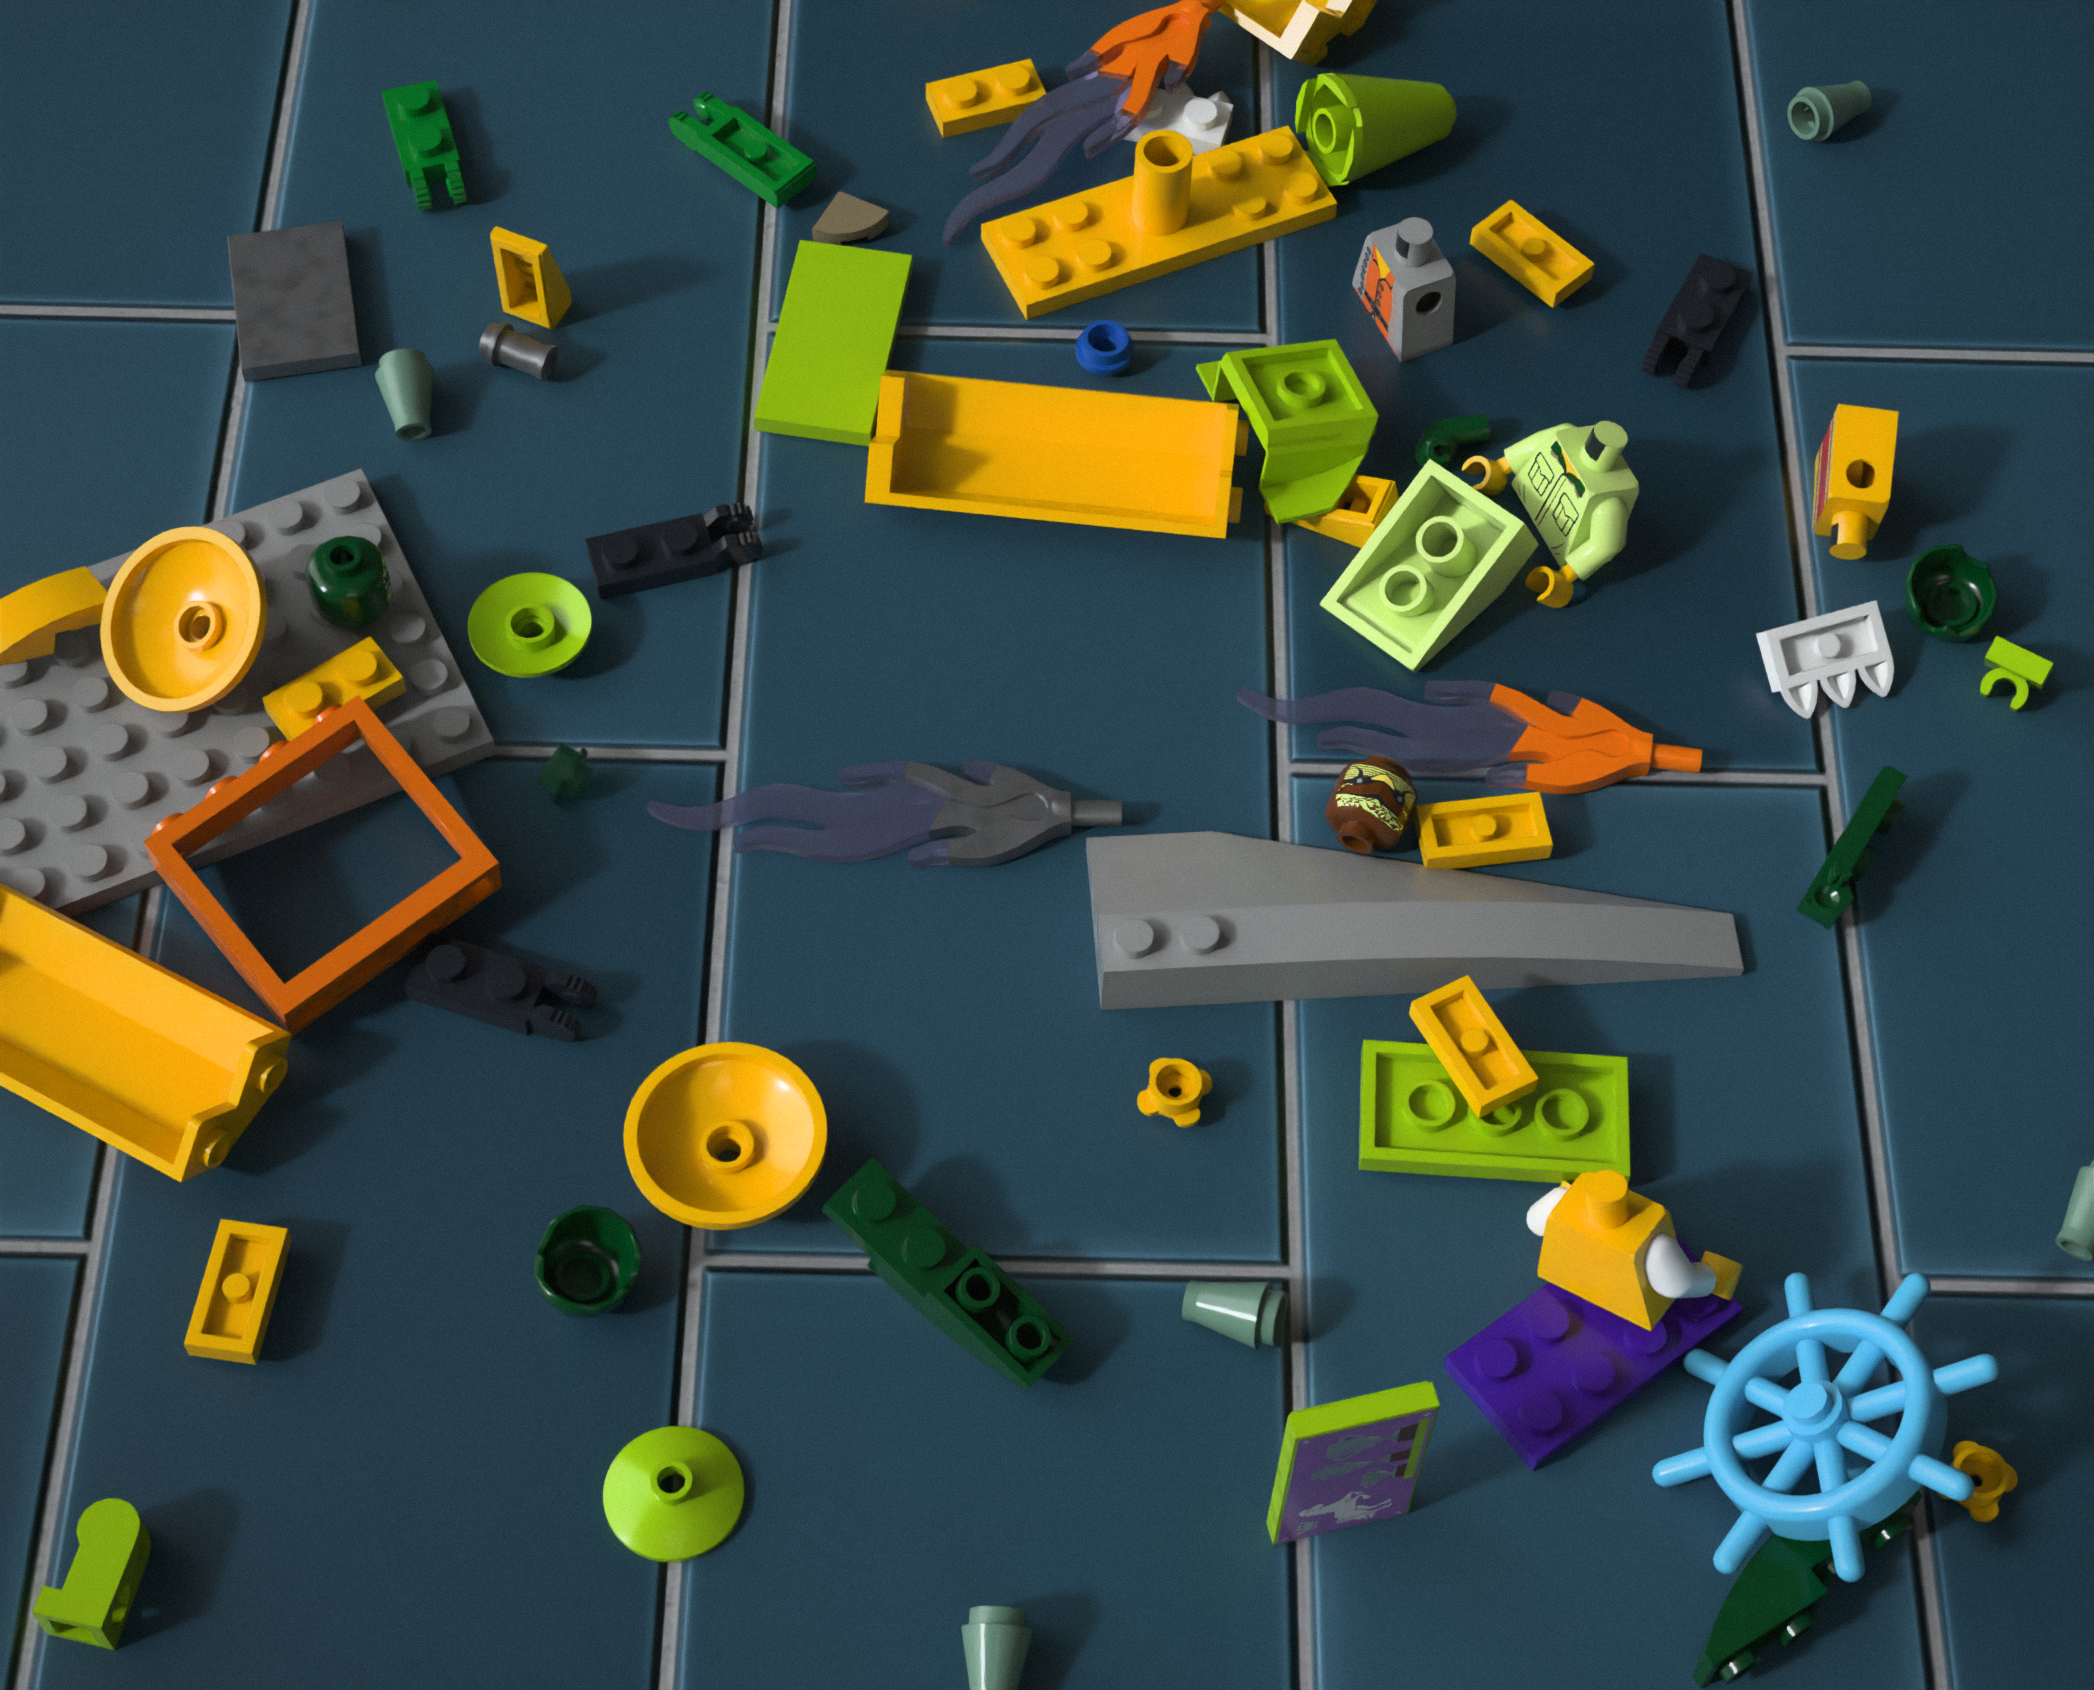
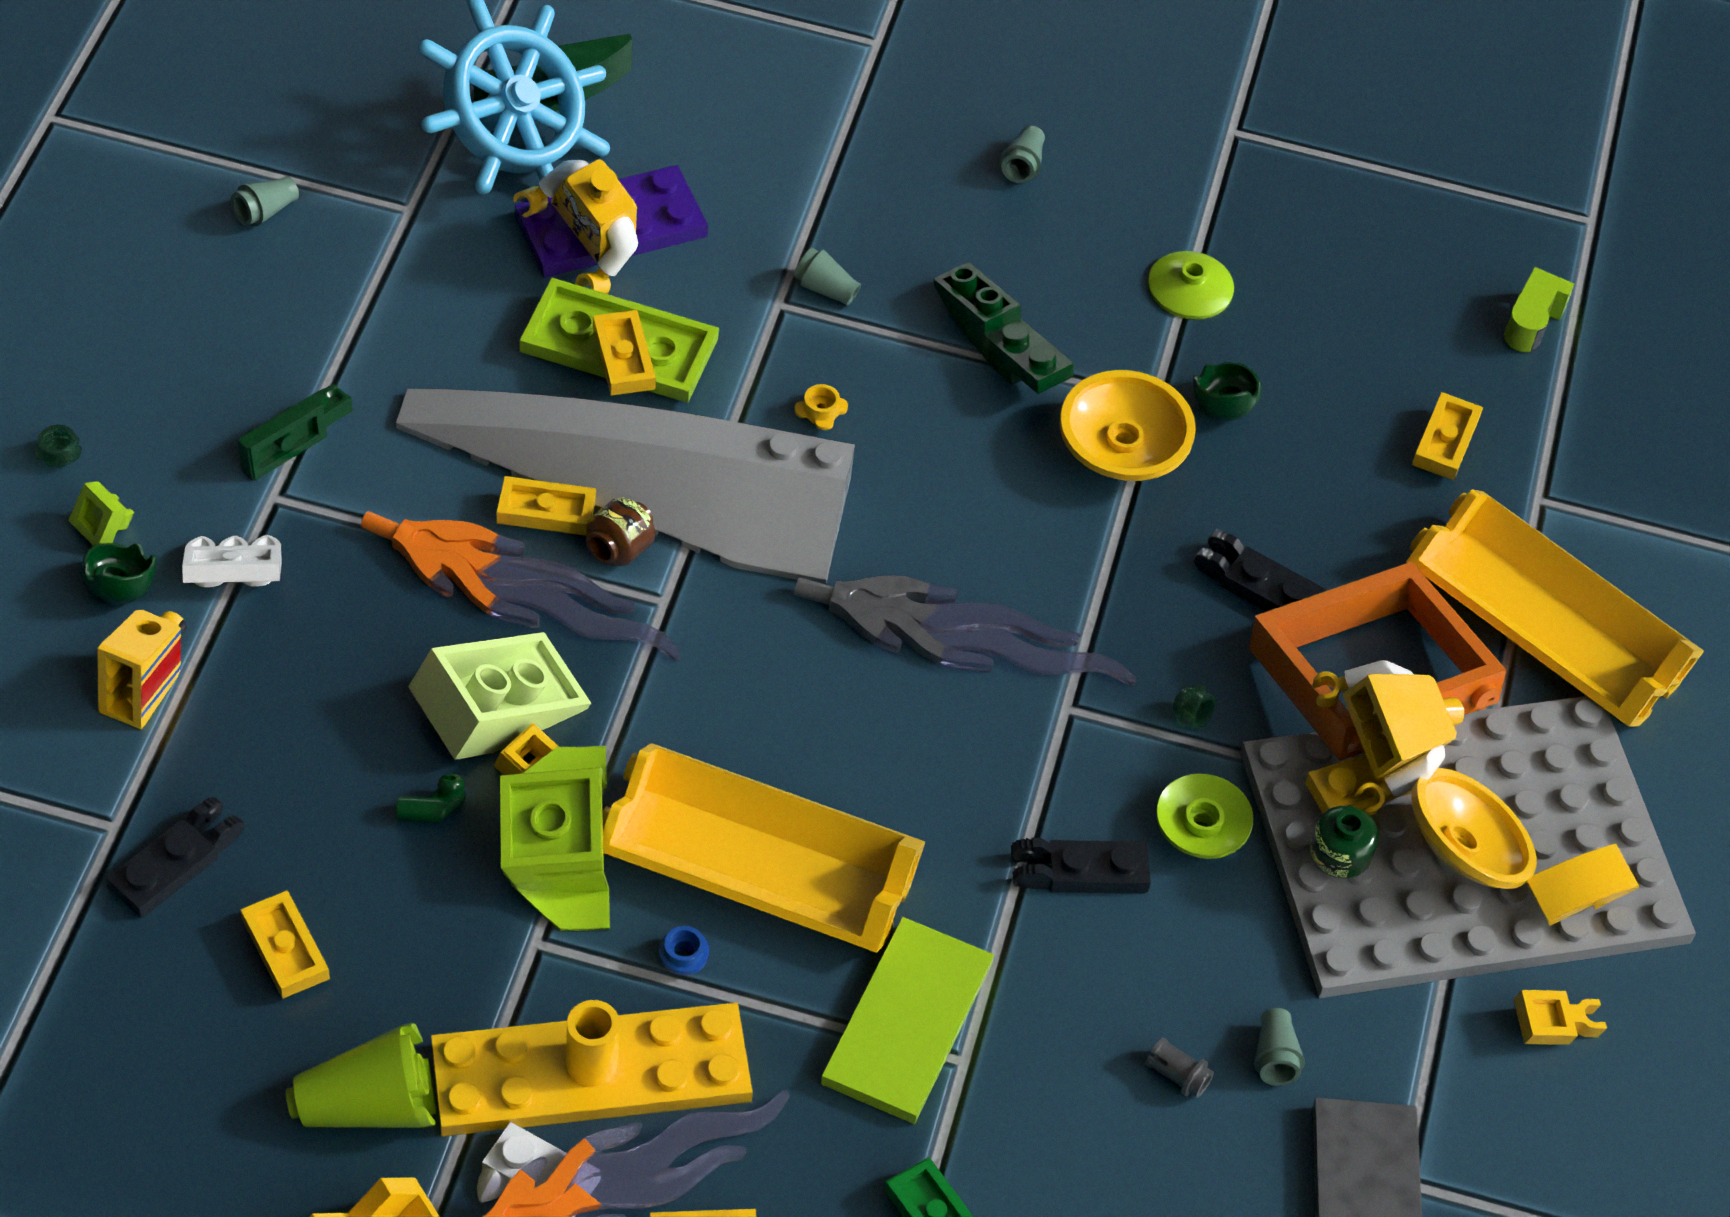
camera: 170 degrees left, 5 degrees down
(79, 499) = (1552, 1020): none -> yellow plate
(293, 693) = (1398, 723): none -> yellow torso
(529, 279) = (1162, 1107): yellow slope -> none
(849, 219) = (866, 1134): dark tan tile -> none
(1351, 1461) = (807, 122): tile -> none
(1402, 273) = (411, 910): light grey torso -> none
(1575, 495) = (366, 708): yellowish green torso -> none
(1994, 1474) = (421, 98): yellow plate -> none

